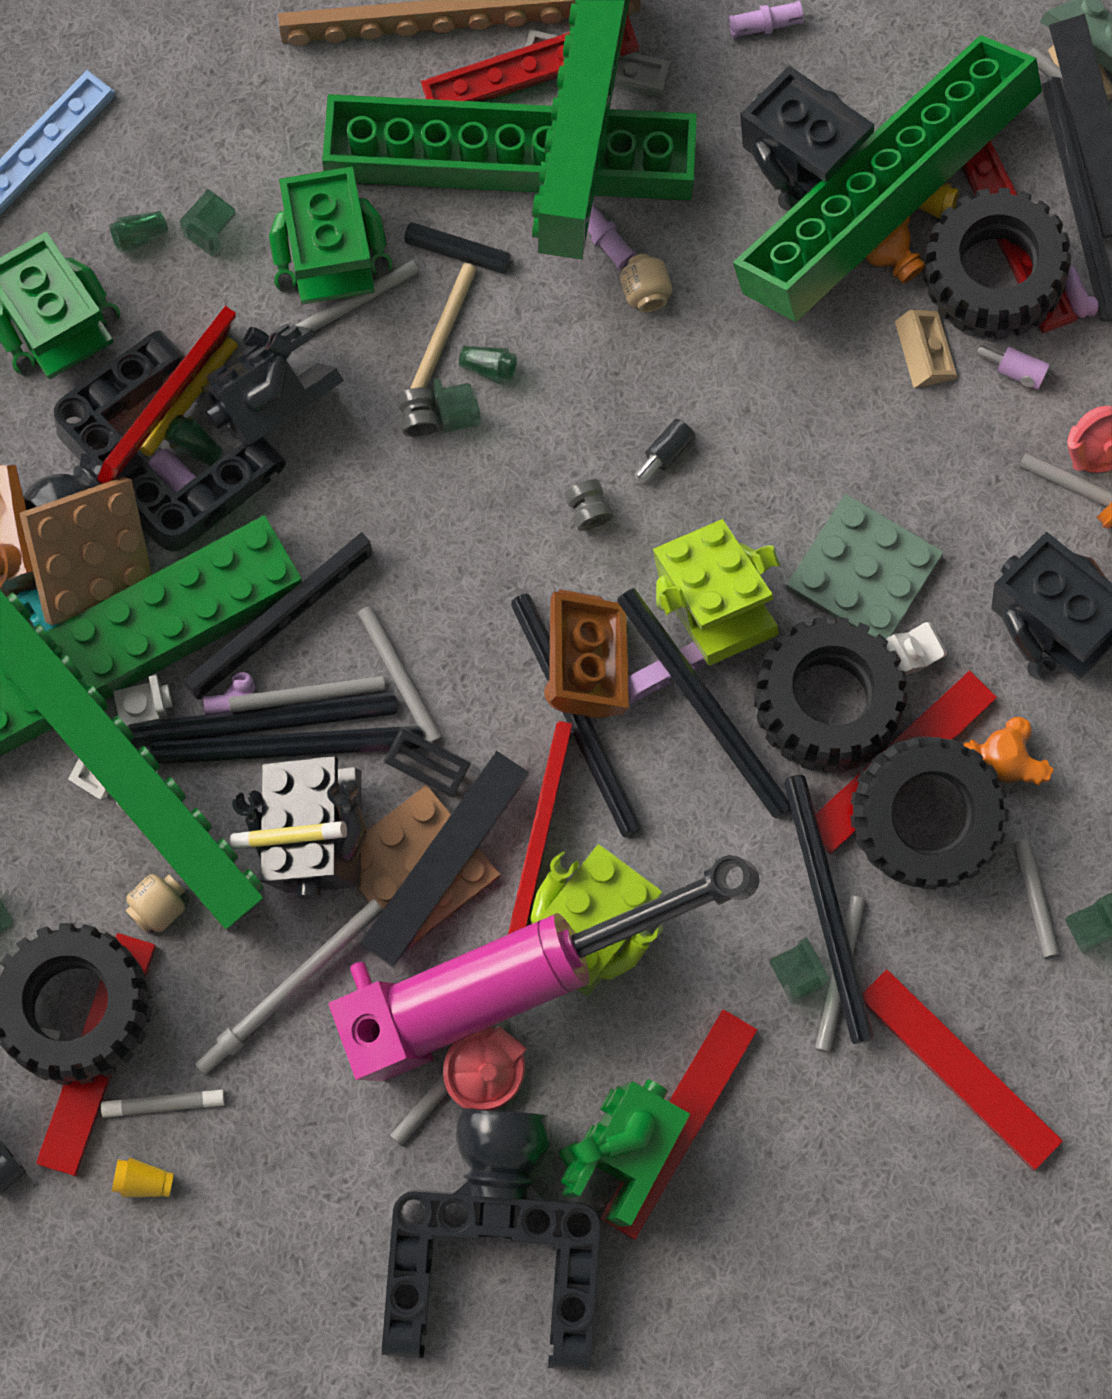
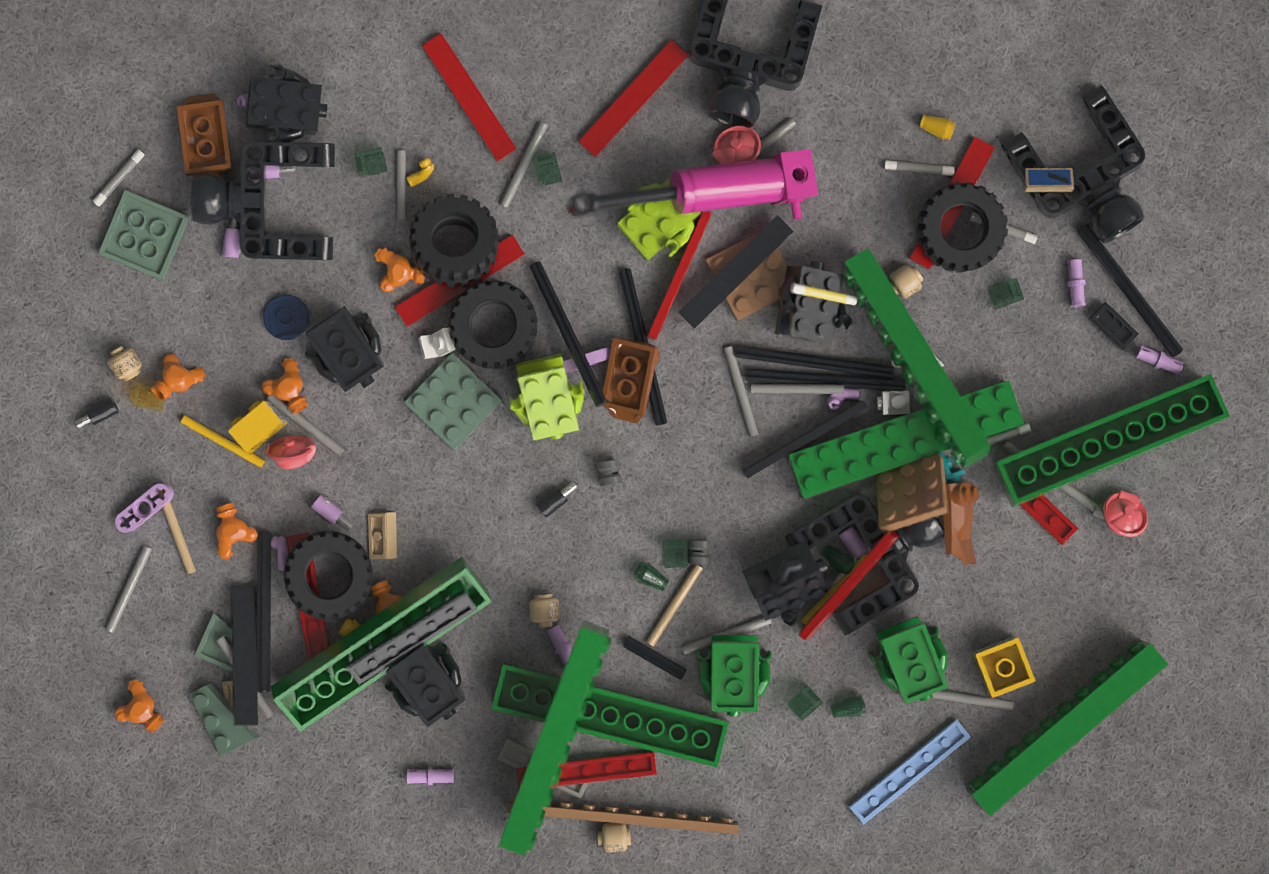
camera: 170 degrees left, 15 degrees up
(232, 1040) = (874, 195): light grey bar -> none
(457, 777) = (730, 340): black tile -> none
(626, 1144) = (666, 86): green torso -> none
(828, 909) = (523, 205): black axle -> none
(845, 184) = (411, 636): none -> tile
(1006, 921) = (421, 175): none -> yellow arm

